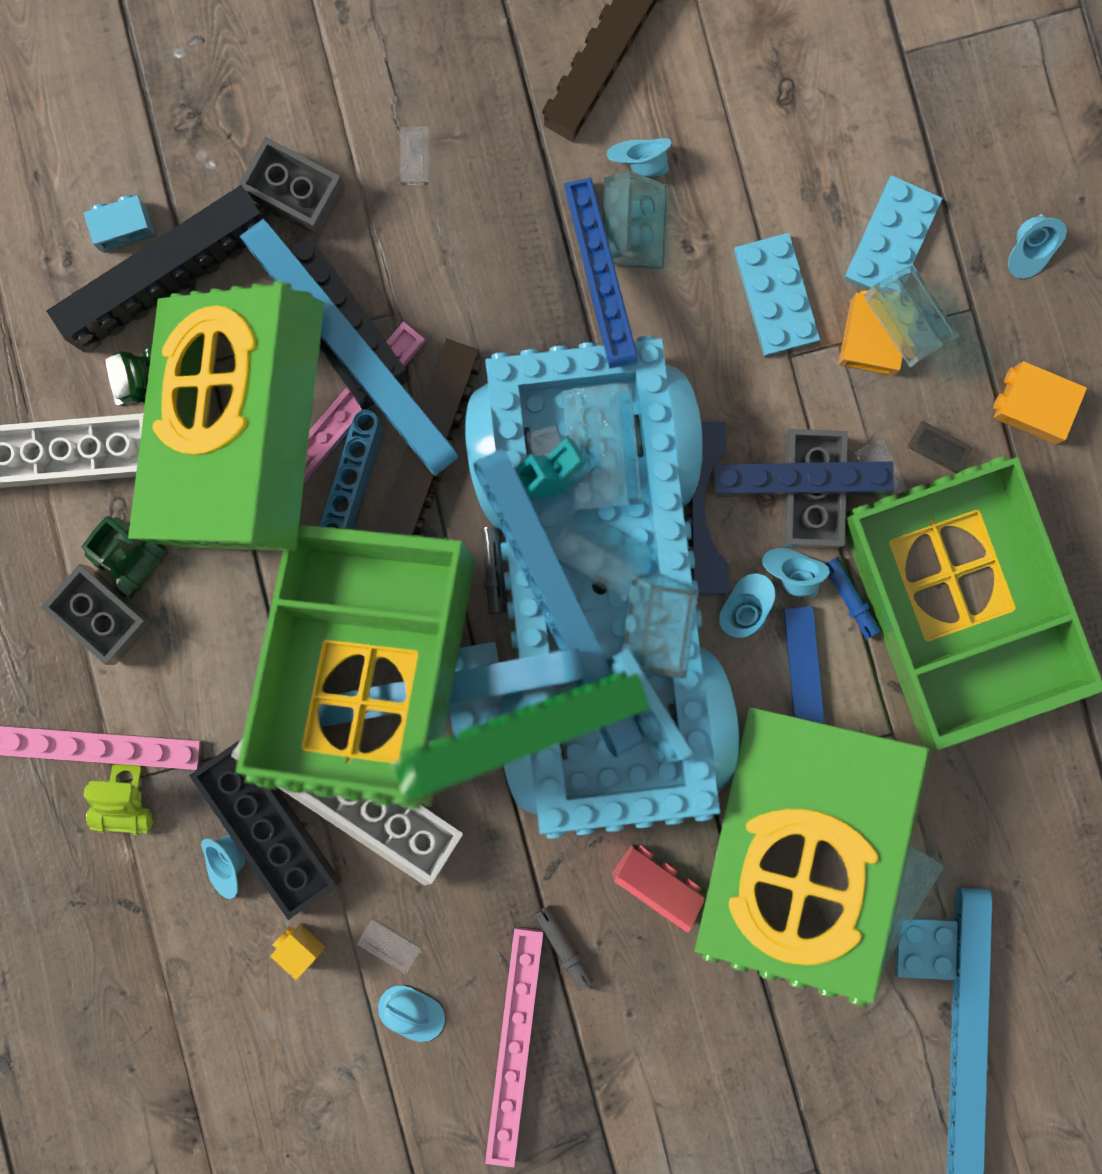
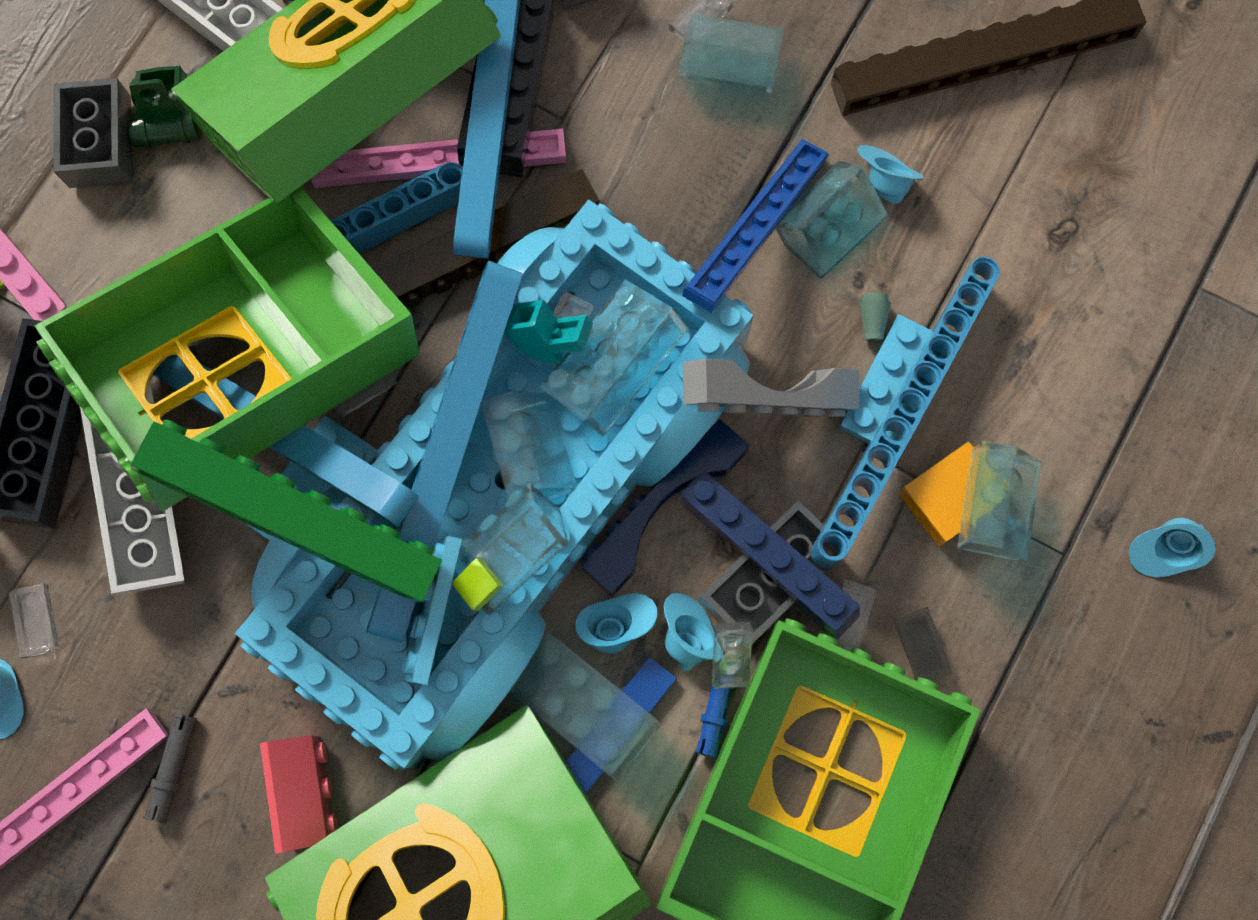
camera: 40 degrees right, 10 degrees down
(464, 165) = (731, 53): none -> clear light blue slope
(663, 666) = (477, 584): none -> lime tile
(693, 402) = (724, 384): none -> light grey arch
(721, 262) = (874, 315): none -> sand green cone
(781, 675) = (584, 707): none -> clear light blue brick
(801, 320) = (902, 422): none -> dark azure beam
(839, 561) = (731, 655): none -> clear plate
(893, 233) = (1054, 423): medium azure plate -> none
(1039, 402) = (1050, 689): light orange brick -> none

